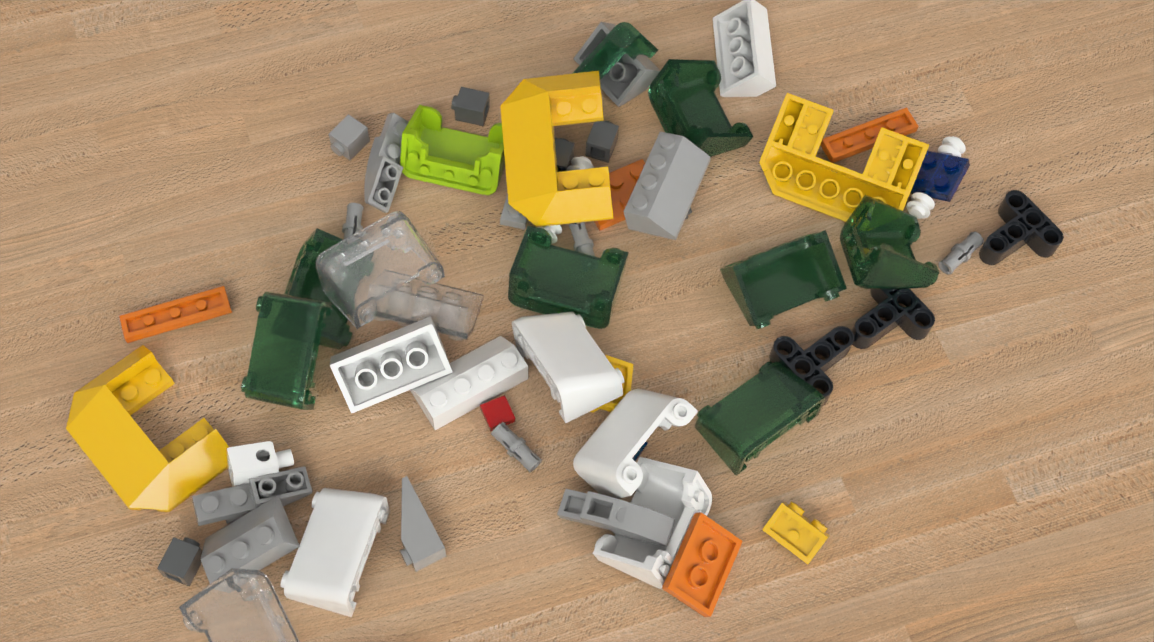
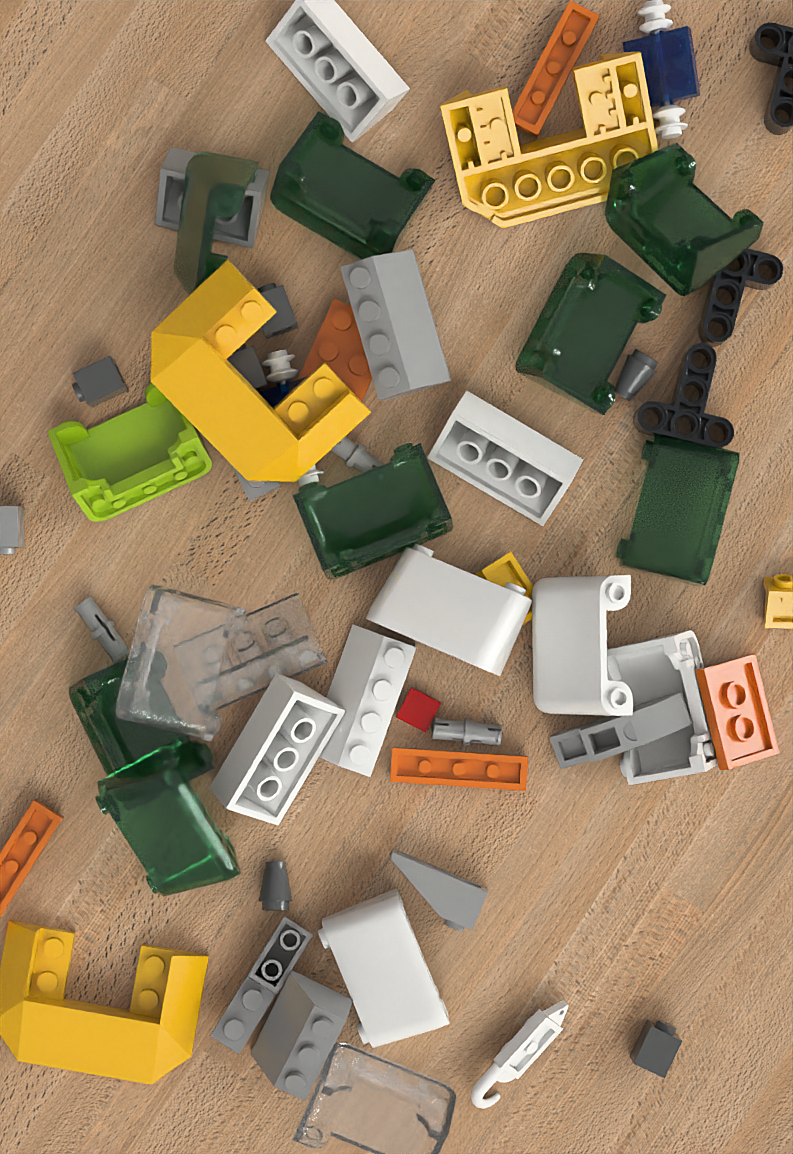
camera: 40 degrees left, 25 degrees up
(181, 560) = (251, 1094): dark grey brick -> none
(255, 461) = (232, 968): white torso -> none
(314, 448) = (275, 887): none -> dark grey cone
(383, 164) = (73, 537): light grey slope -> none
(492, 465) = (459, 768): none -> orange plate
(673, 310) = (505, 458): none -> white slope
(793, 322) = (635, 374): none -> dark grey cone
(961, 253) = (749, 146): light grey pin -> none

